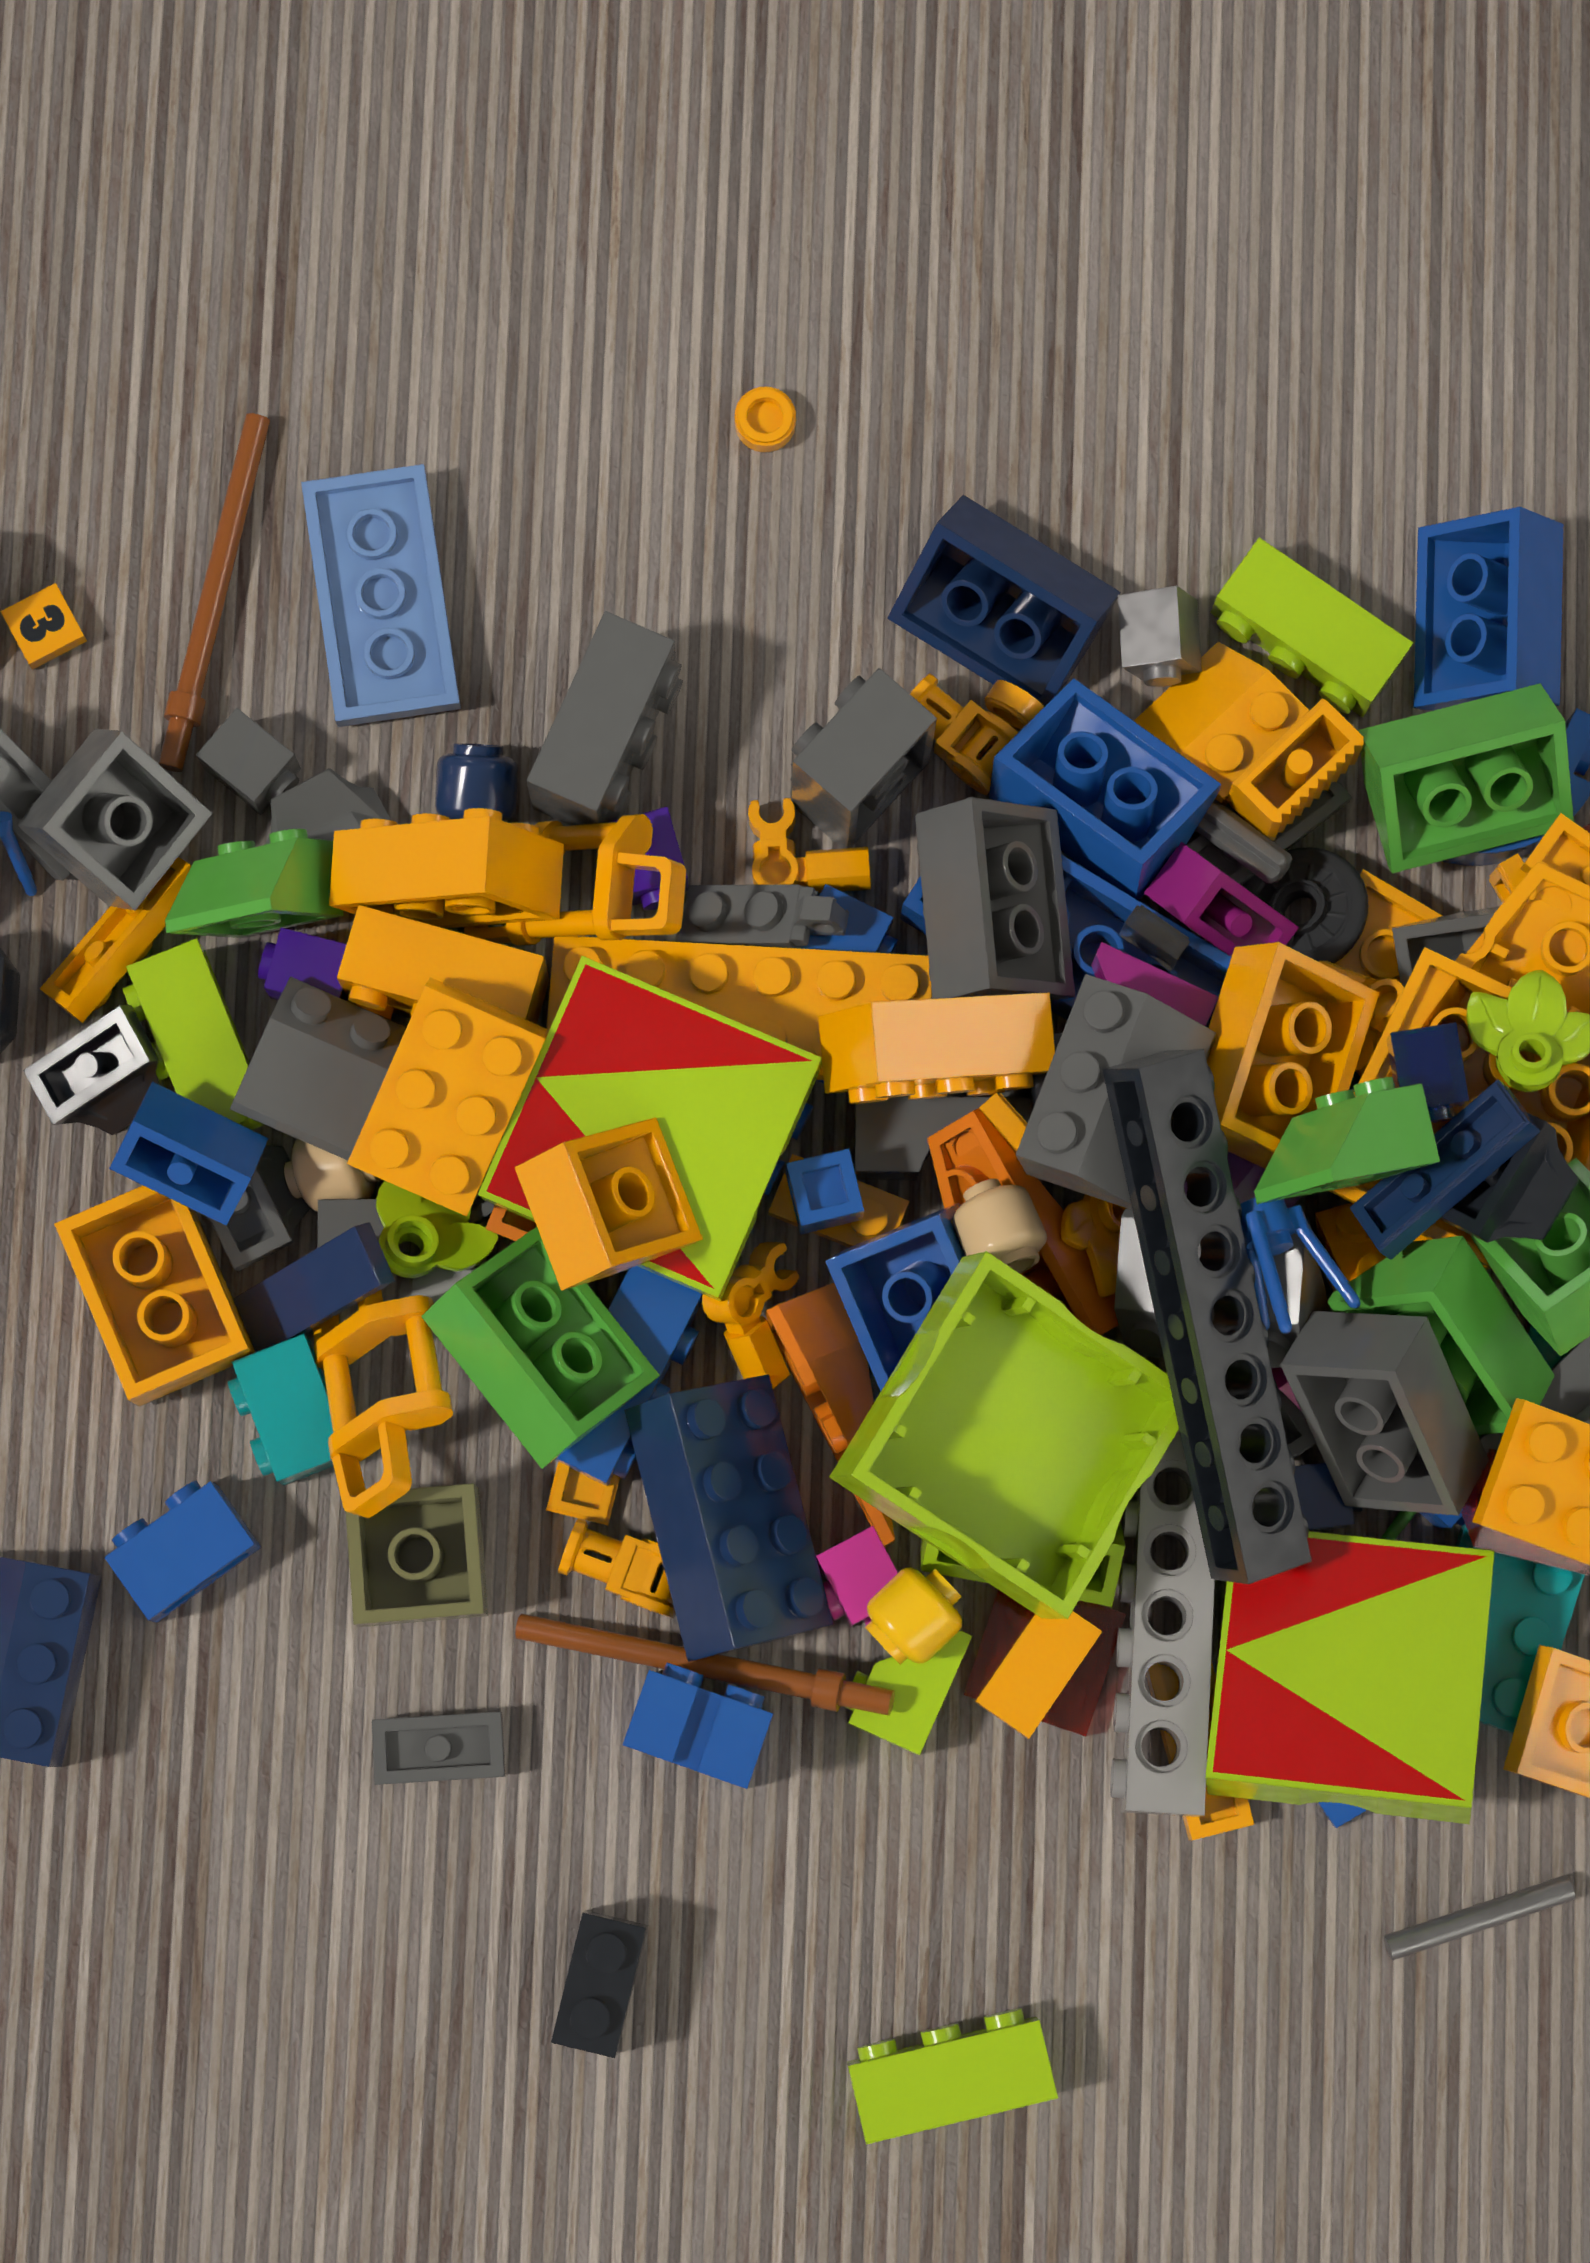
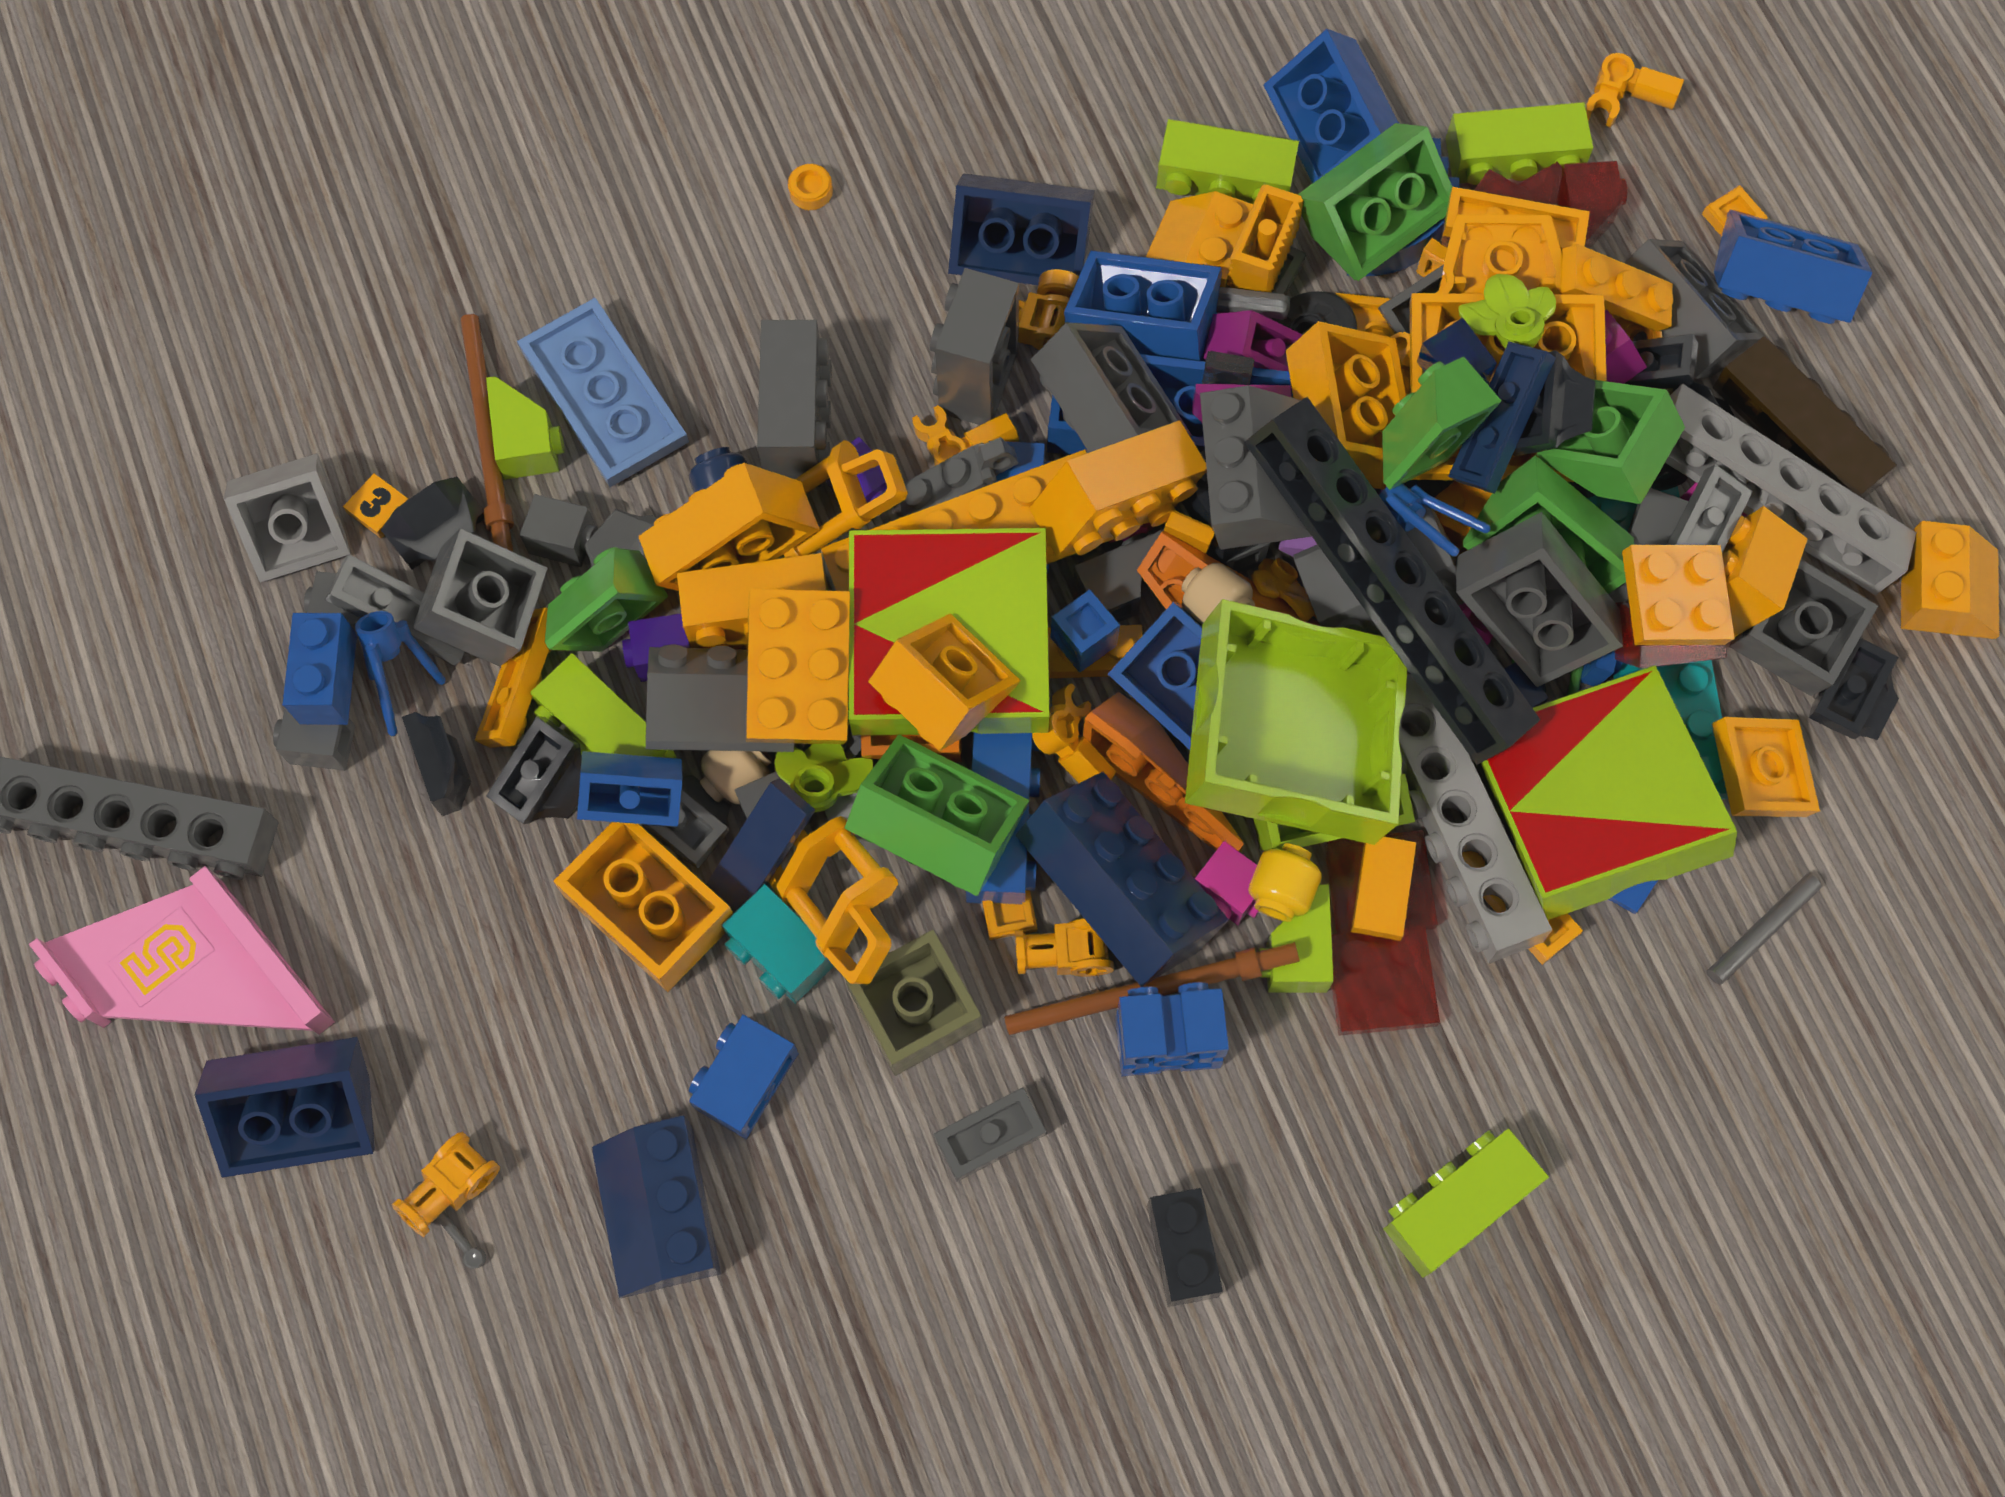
camera: 20 degrees left, 10 degrees down
(104, 682) = (430, 519): none -> black slope
(256, 611) = (521, 433): none -> lime slope
(986, 1775) = (1383, 983): none -> clear red plate
(1159, 635) = (1132, 205): flat silver brick -> none

